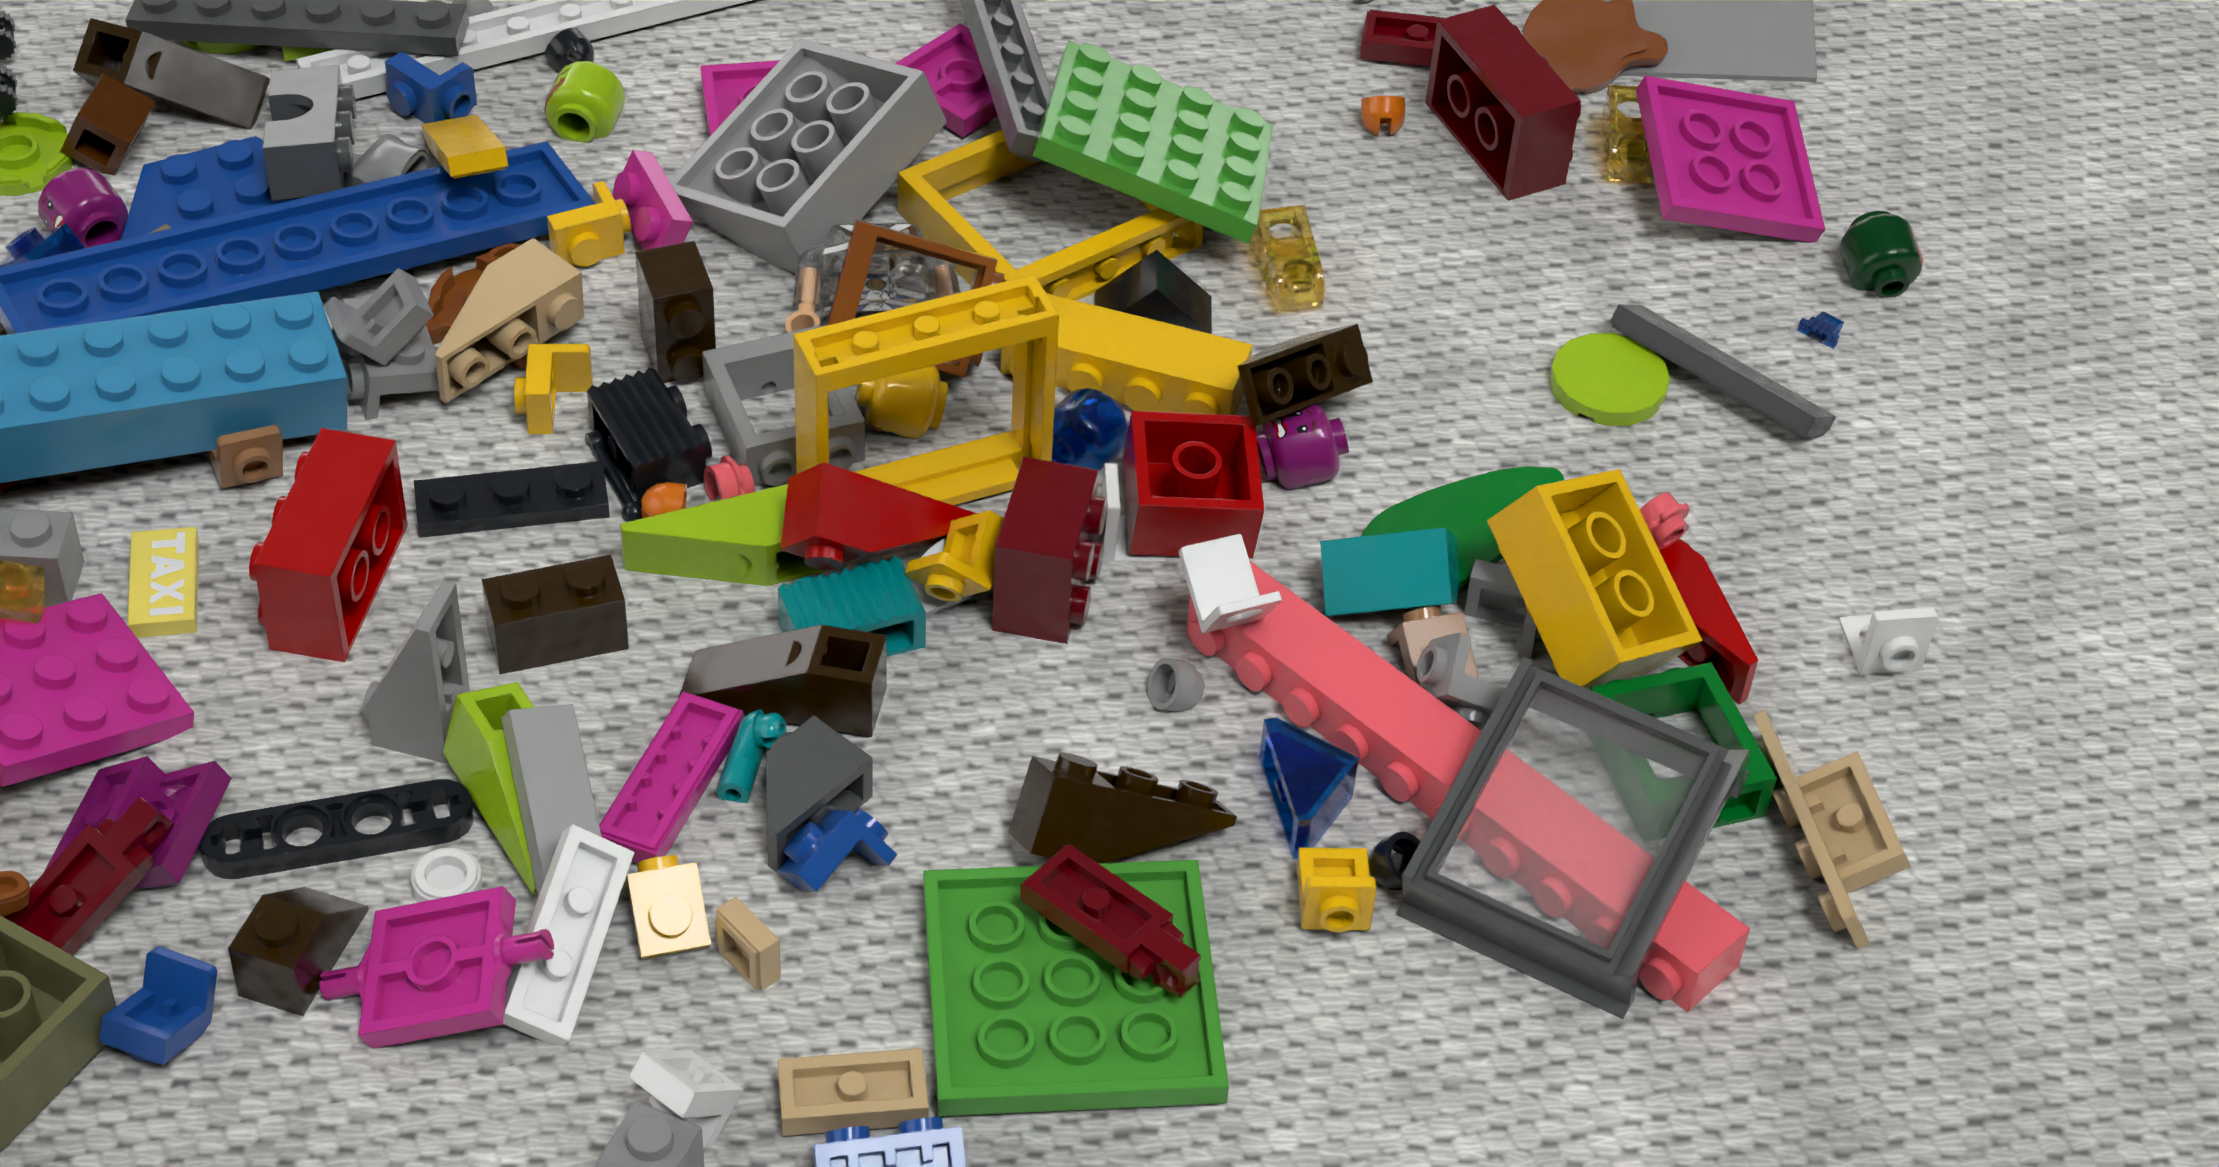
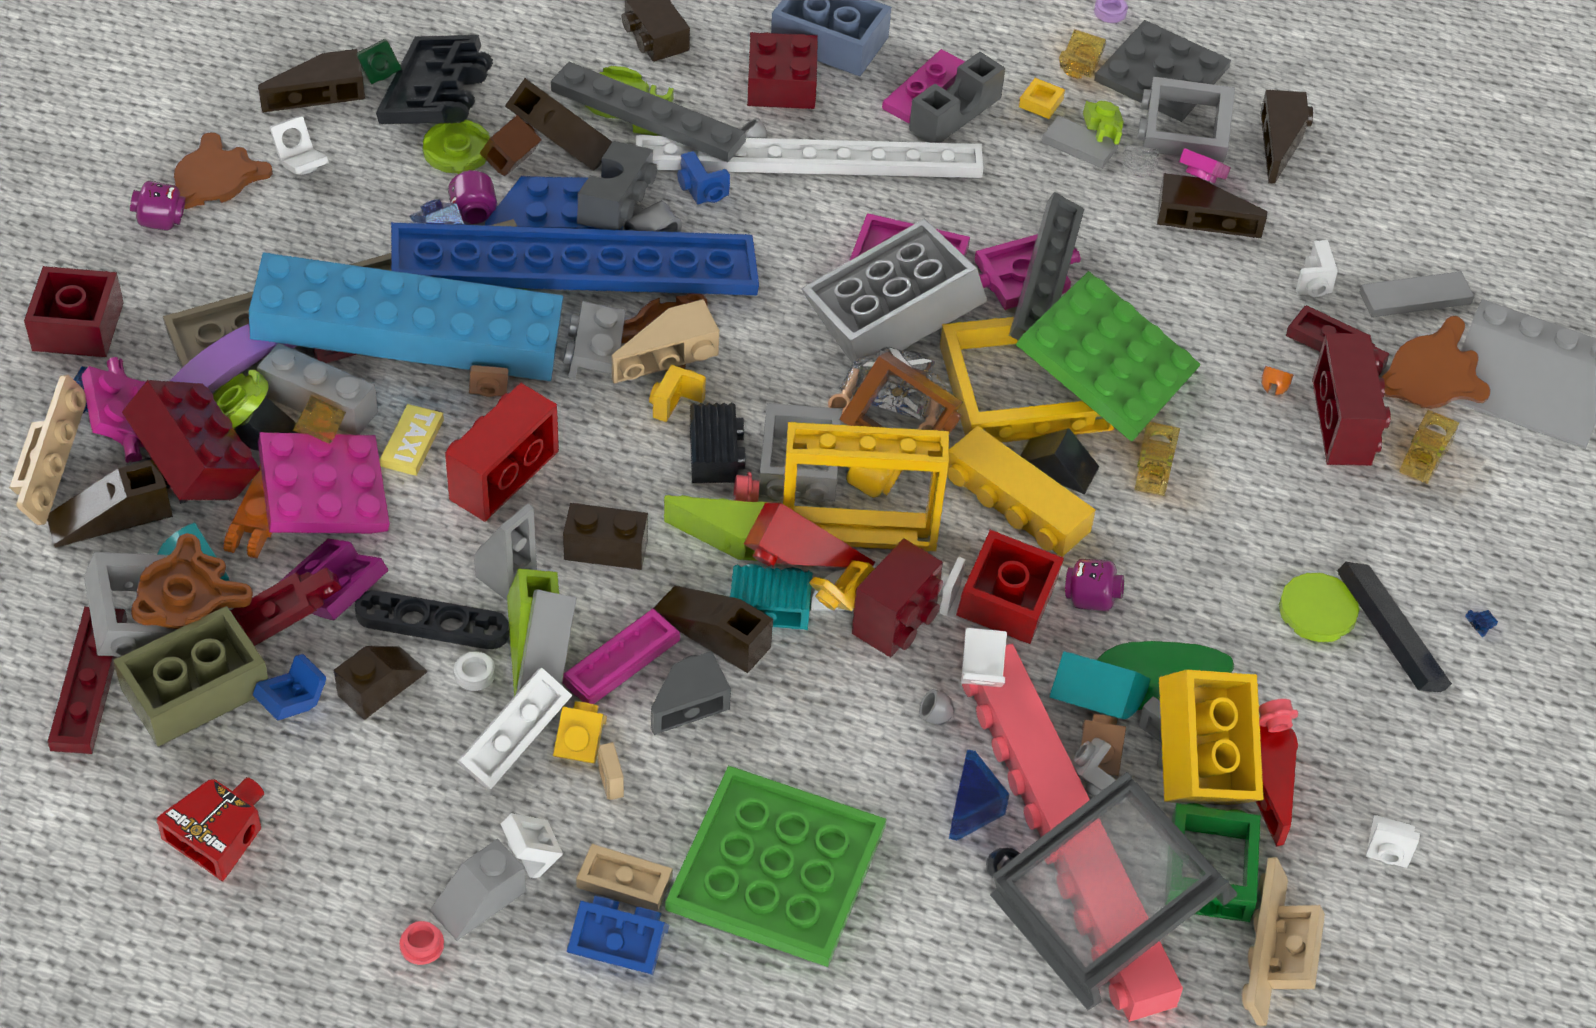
camera: 25 degrees right, 5 degrees up
(384, 321) = (591, 326): light grey bracket -> none
(437, 967) = (439, 721): dark pink plate -> none
(465, 146) = (700, 224): yellow tile -> none
(511, 499) = (622, 455): black plate -> none
(568, 43) = (797, 172): black hinge -> none
(584, 102) = (788, 215): lime head -> none
(591, 231) = (747, 302): yellow bracket -> none
(631, 509) = (686, 487): black hinge -> none
(652, 203) = (790, 298): dark pink plate -> none
(664, 499) = (703, 487): orange hinge -> none
(675, 310) = (763, 371): dark brown brick -> none
(743, 761) = (675, 652): teal arm -> none
(821, 847) = (676, 731): blue bracket -> none
(1088, 429) = (966, 528): clear blue head -> none
(1109, 812) = (846, 772): dark brown slope -> none
(1112, 919) = (811, 835): dark red hinge -> none
(1304, 372) = (1110, 539): dark brown slope -> none
(1335, 889) = (957, 866): yellow bracket -> none
(1729, 160) = (1479, 487): dark pink plate -> none
(1881, 254) = (1548, 585): dark green head -> none

